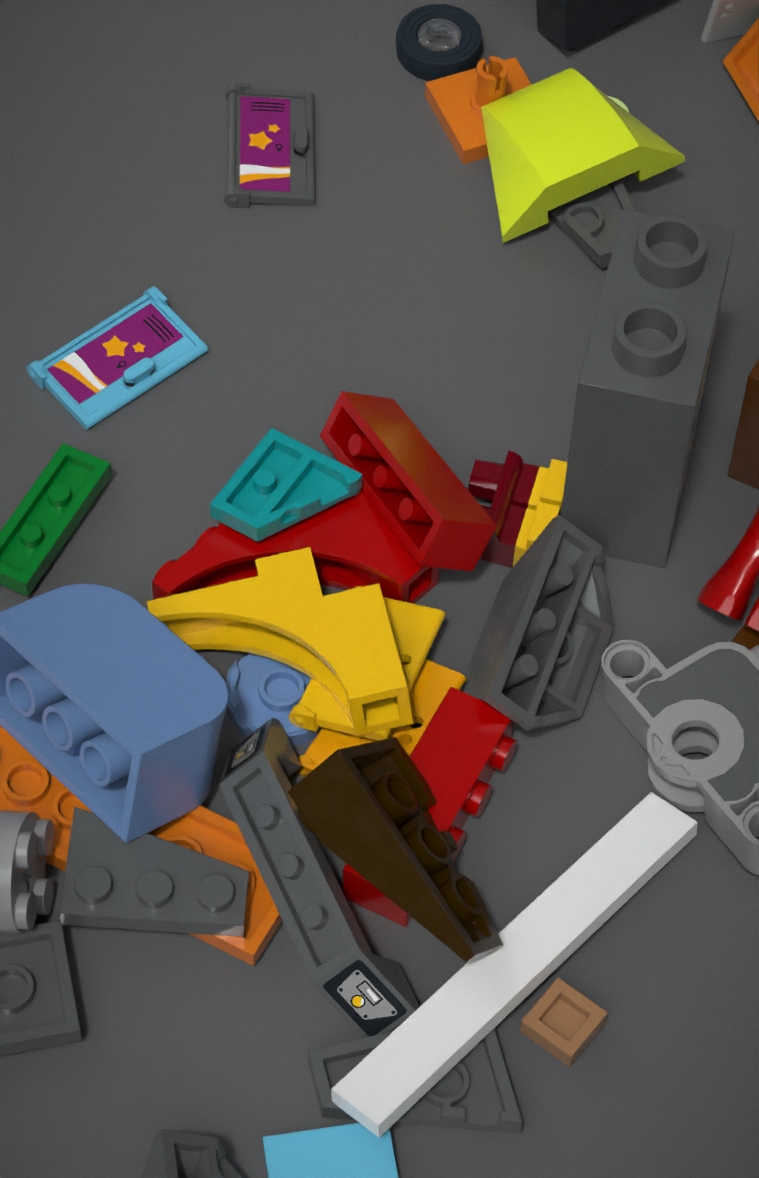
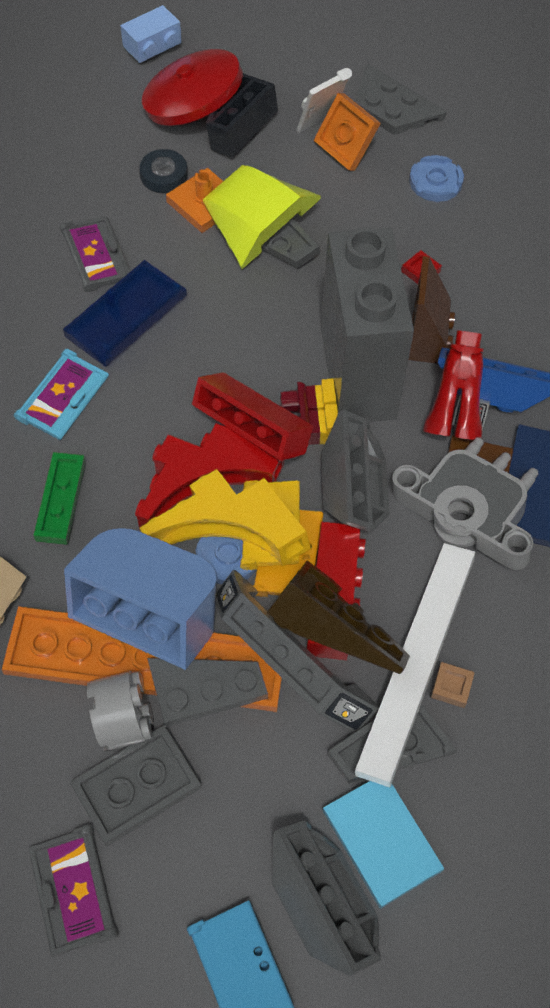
camera: 20 degrees left, 5 degrees up
(274, 256) = (124, 312): none -> clear blue container
(281, 486) = (187, 440): teal wing -> none

